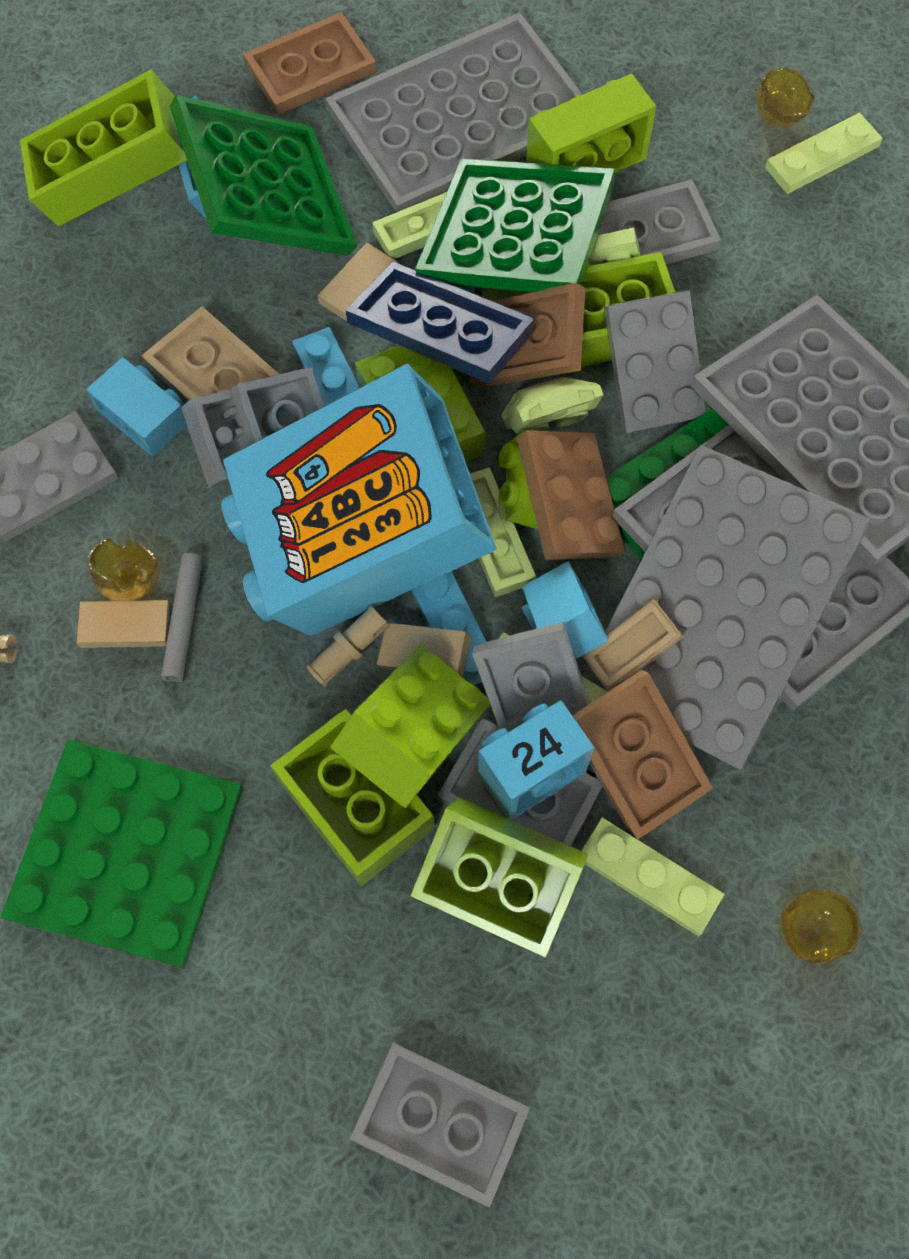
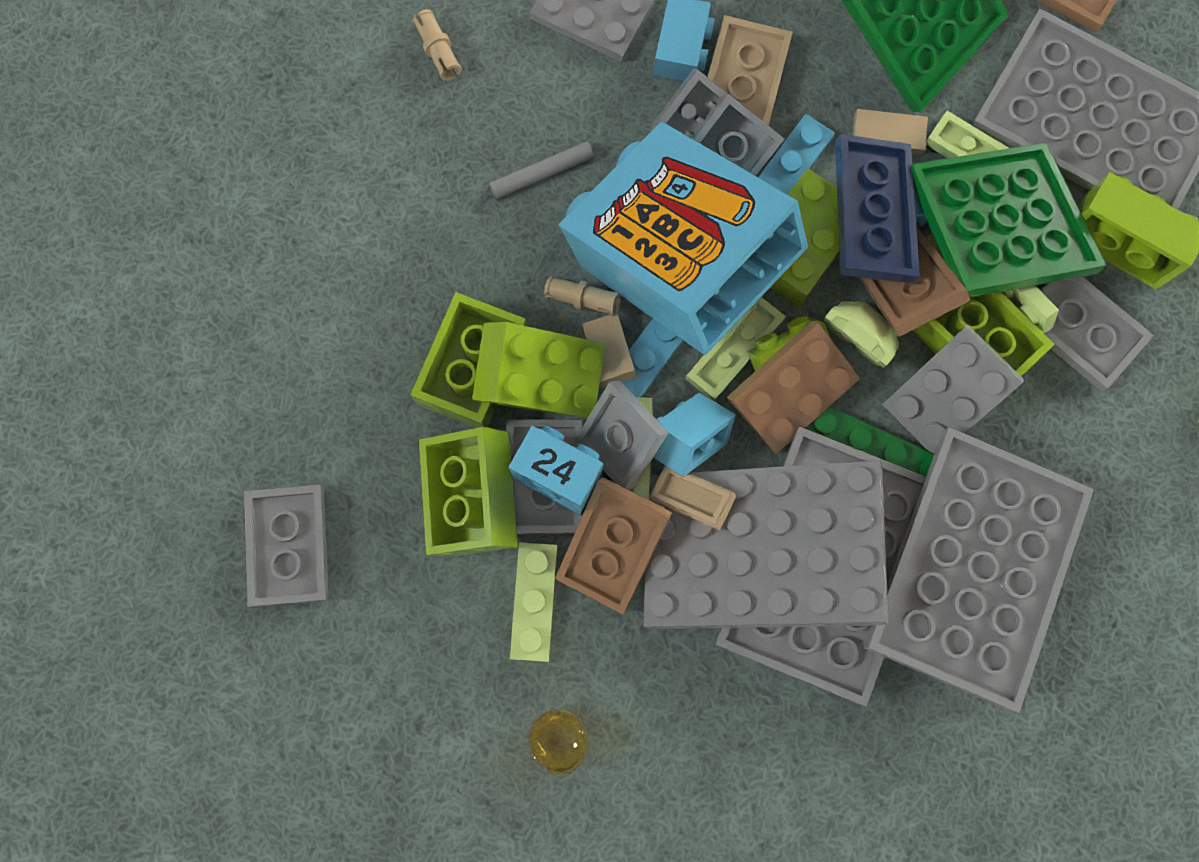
camera: 60 degrees right, 10 degrees up
(111, 565) = (549, 98): clear yellow hair -> none
(123, 623) = (514, 134): tan tile -> none
(123, 853) = (355, 236): green plate -> none

